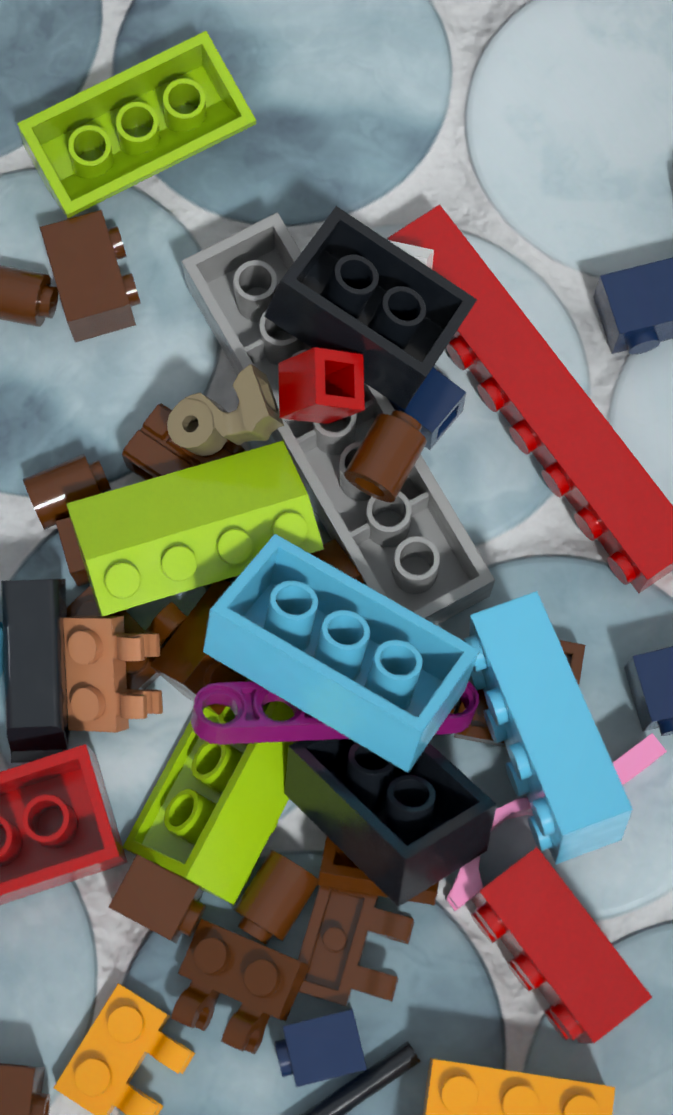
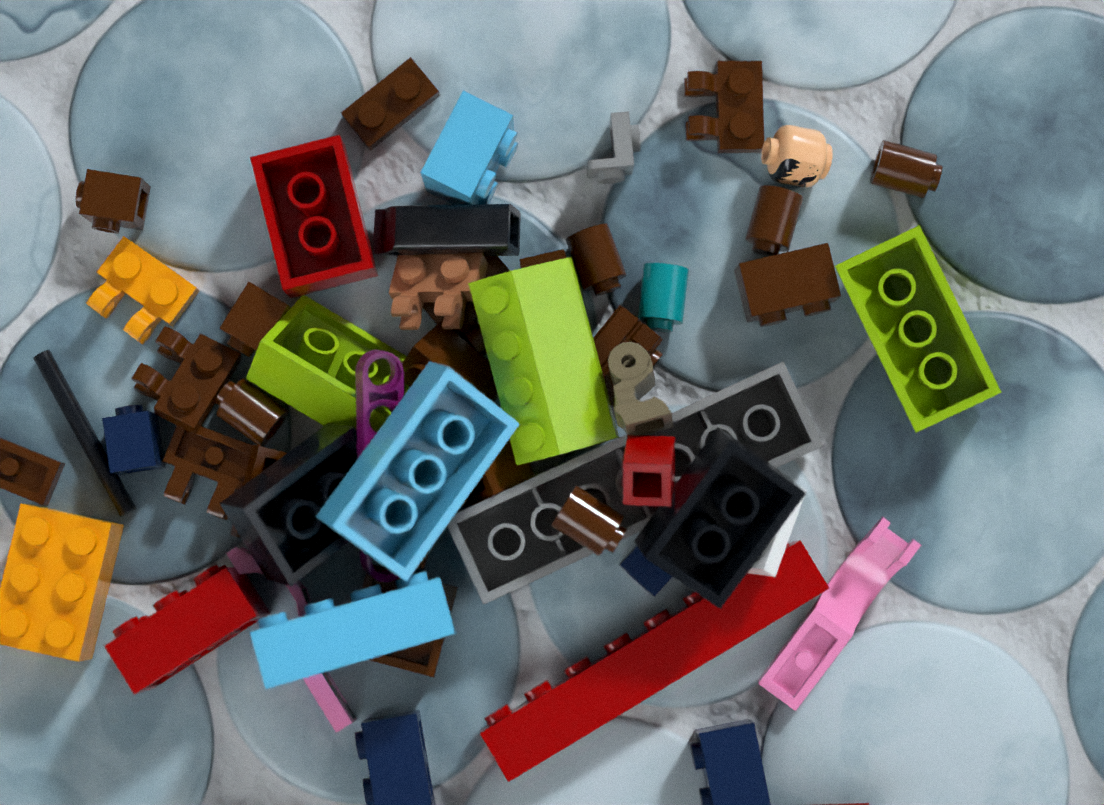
camera: 90 degrees right, 10 degrees up
(107, 411) = (663, 296): none -> teal brick
(477, 209) = (836, 614): none -> bright pink piece

